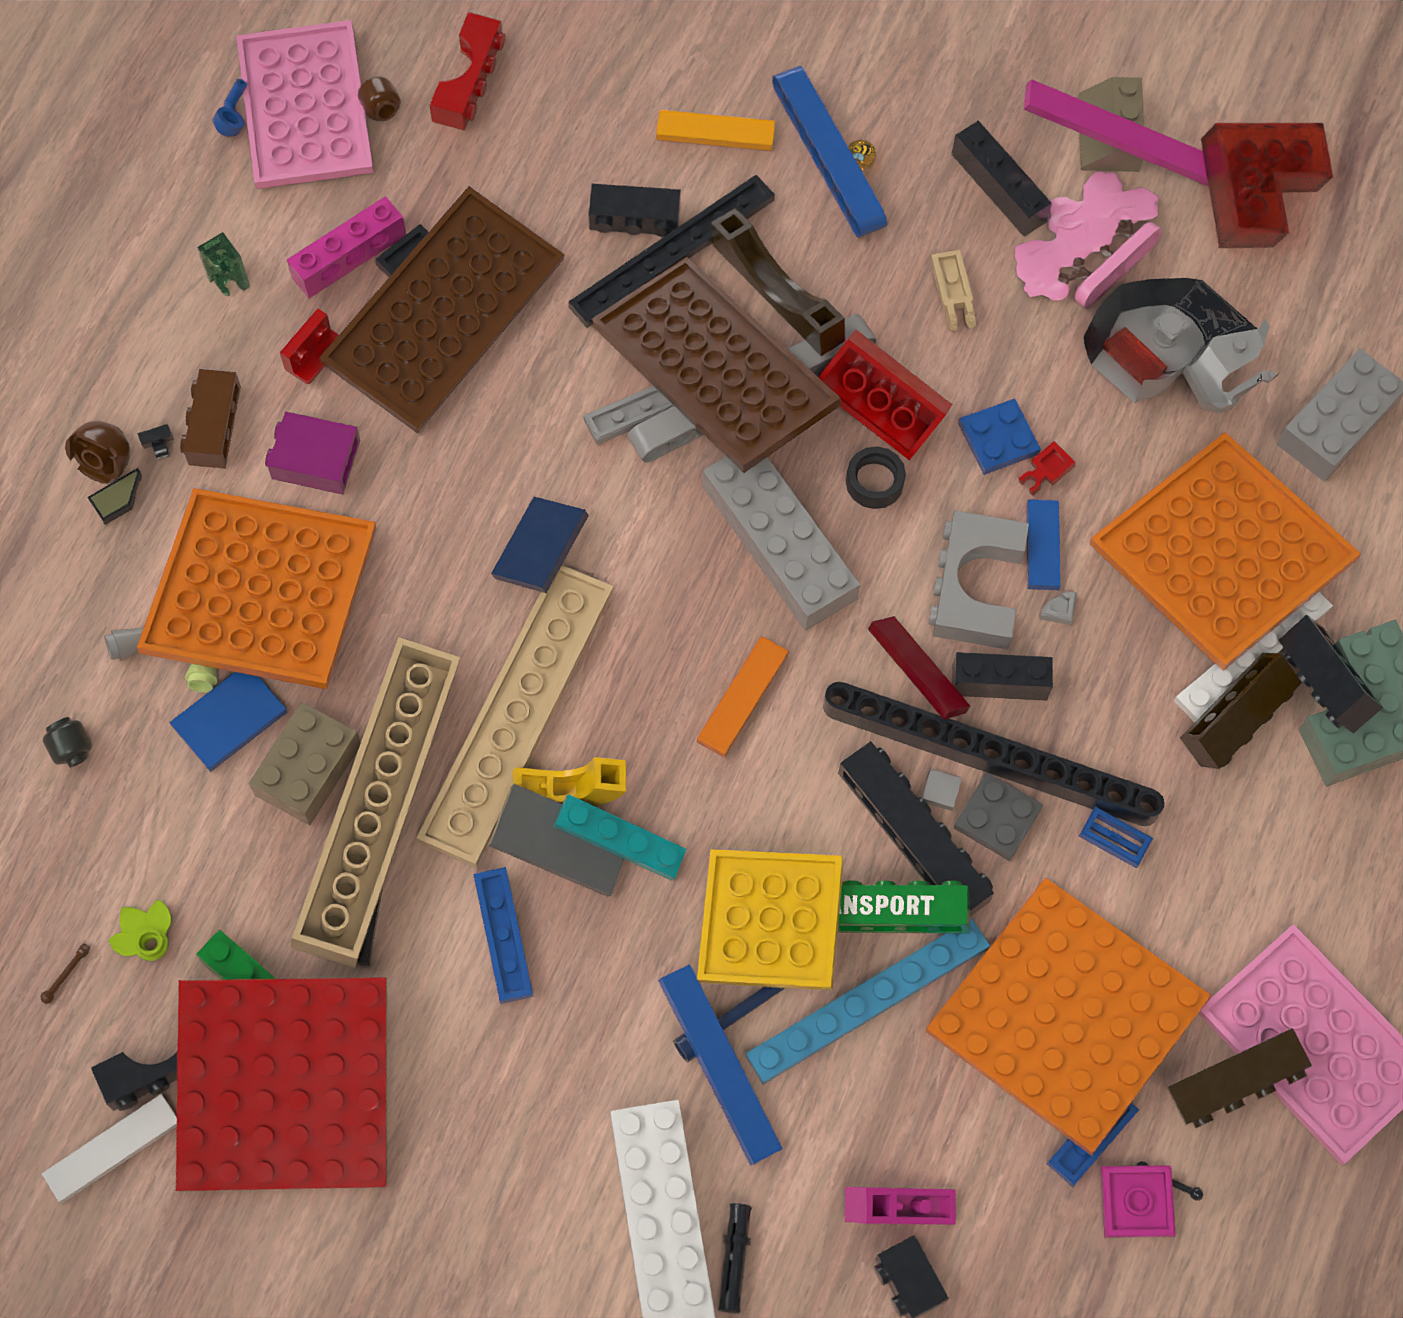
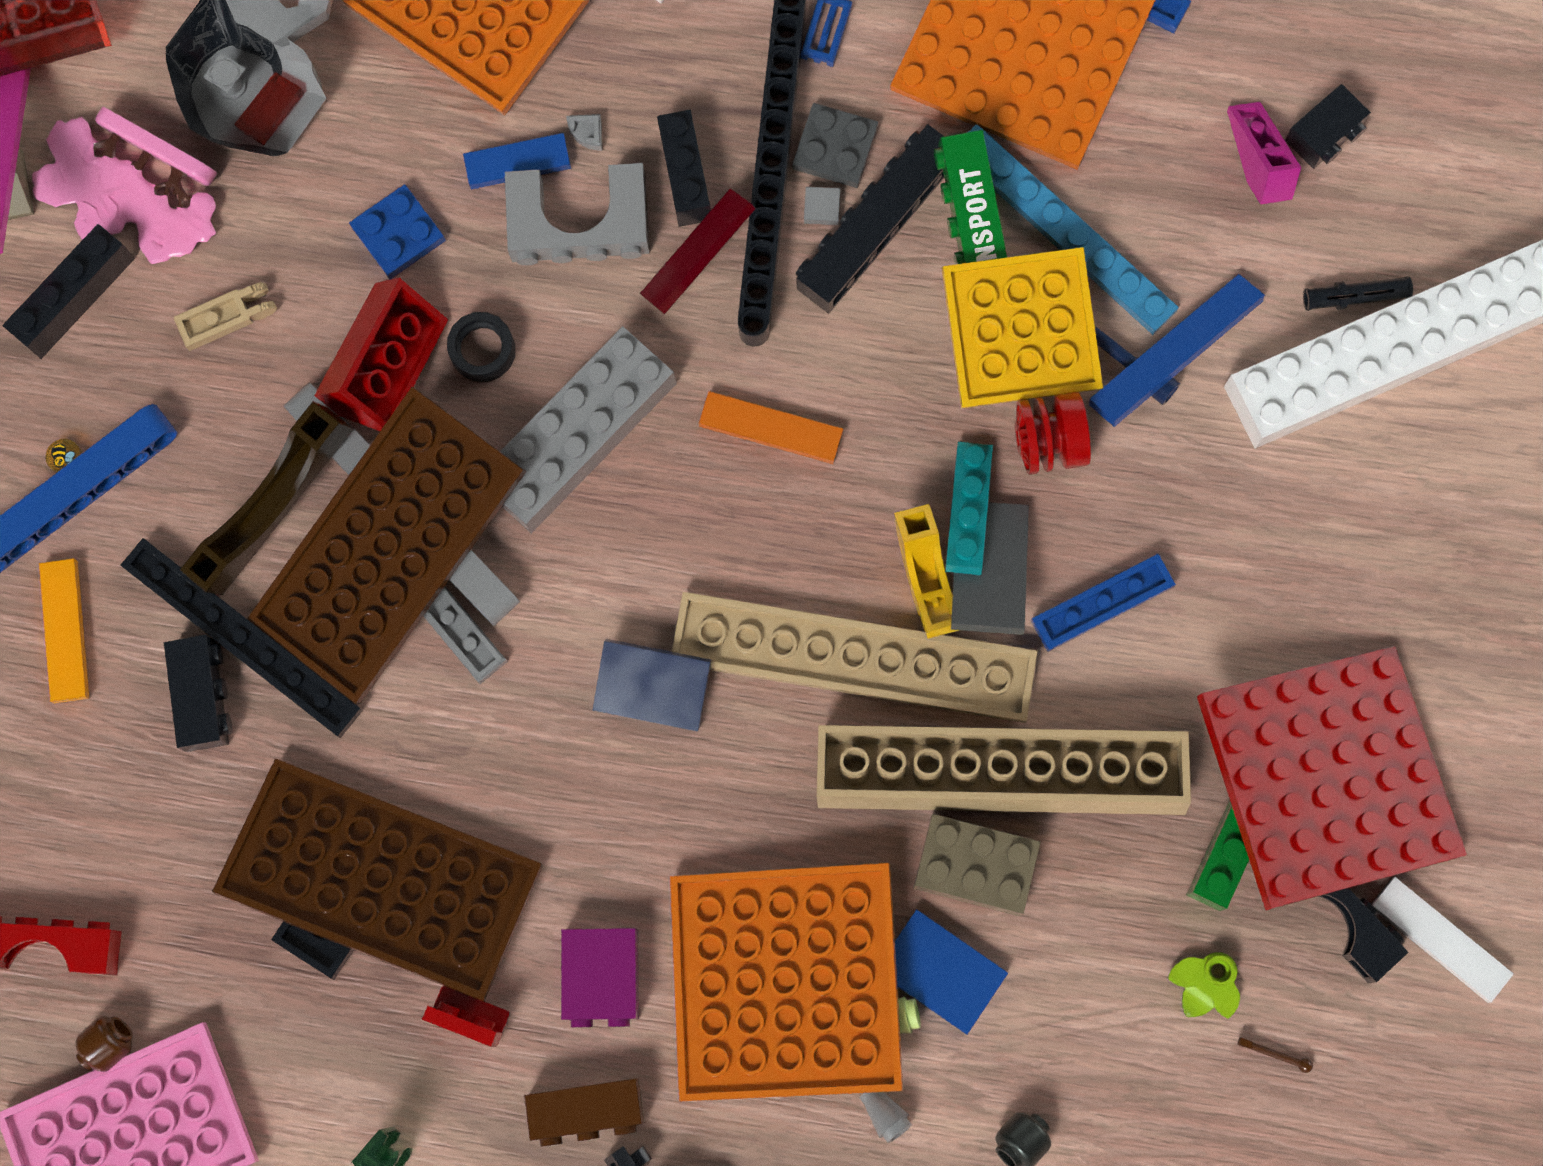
camera: 95 degrees left, 10 degrees up
(346, 247) = (321, 1018): dark pink brick -> none
(667, 925) = (1051, 433): none -> red wheel
(1049, 465) = (424, 169): red plate -> none

